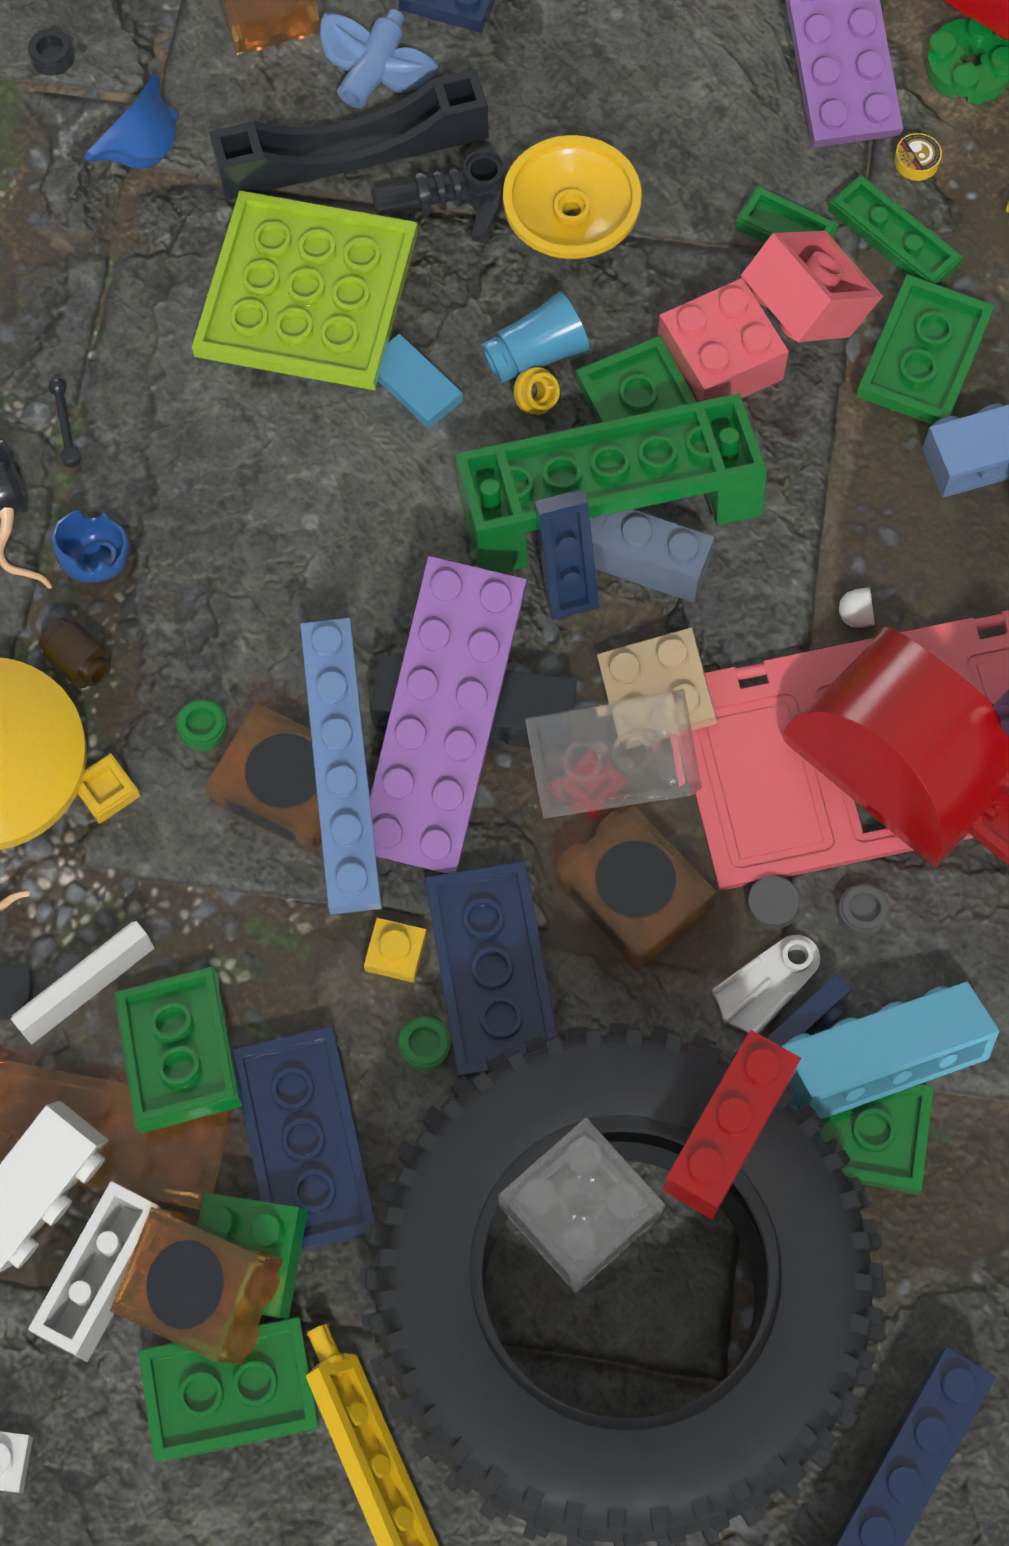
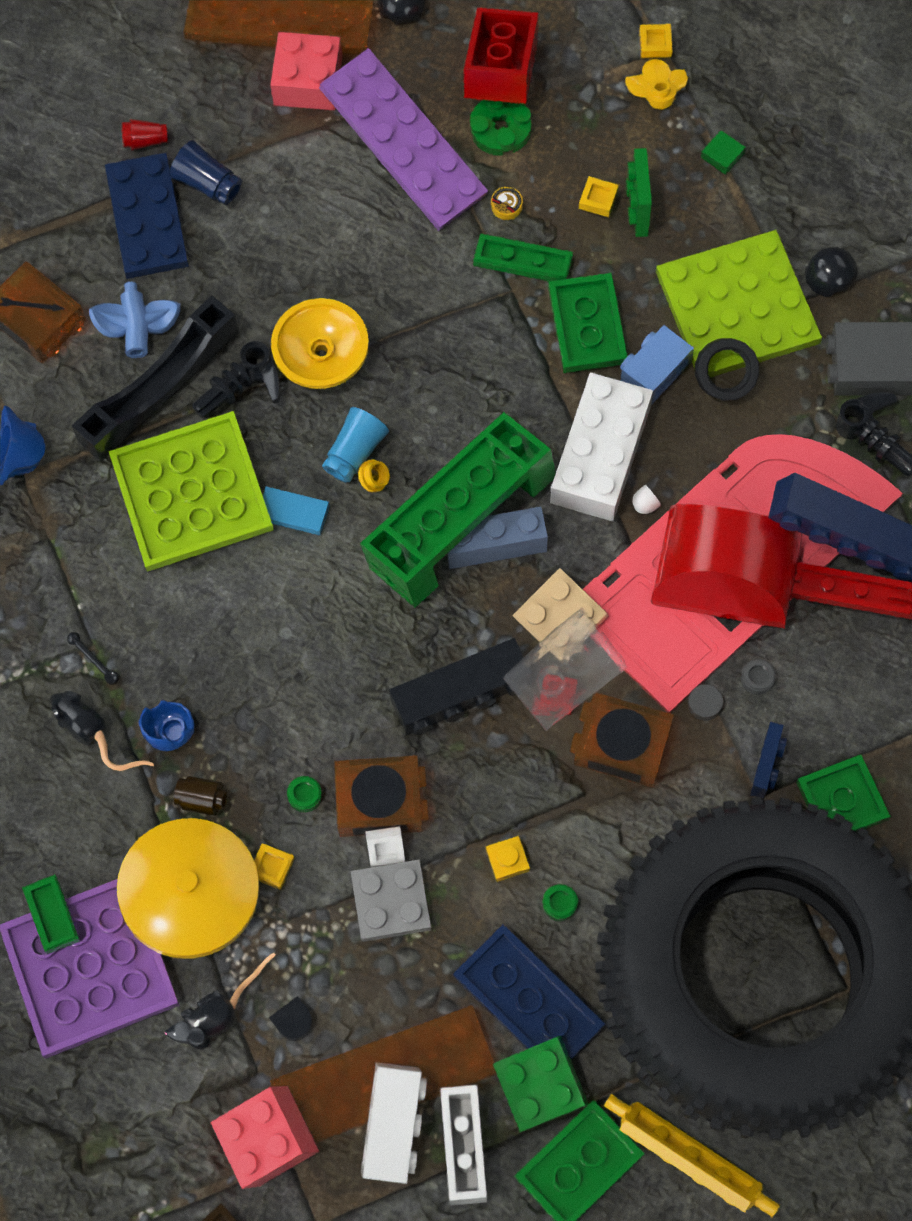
camera: 30 degrees left, 0 degrees up
(82, 982) = (338, 987): white tile -> none
(177, 1050) = (422, 991): green tile -> none
(197, 1286) = (529, 1116): clear orange brick -> none
(219, 915) = (390, 900): none -> light grey plate
(253, 844) = (385, 846): none -> white plate
(340, 767) = (411, 768): medium blue plate -> none
(443, 713) = (452, 704): medium lavender plate -> none
(489, 963) = (570, 835): dark blue plate -> none
(567, 554) = (464, 566): dark blue plate -> none
(581, 1205) = (731, 932): clear brick -> none
(634, 382) = (432, 440): green plate -> none
(724, 343) = (467, 387): coral brick -> none
(731, 1124) = (783, 838): red brick -> none
(765, 985) = (730, 752): white piece -> none
(770, 214) = (455, 289): green tile -> none
(810, 286) = (499, 321): coral brick -> none
(843, 509) = (601, 446): none -> white brick
(891, 1050) = (825, 747): medium azure brick -> none

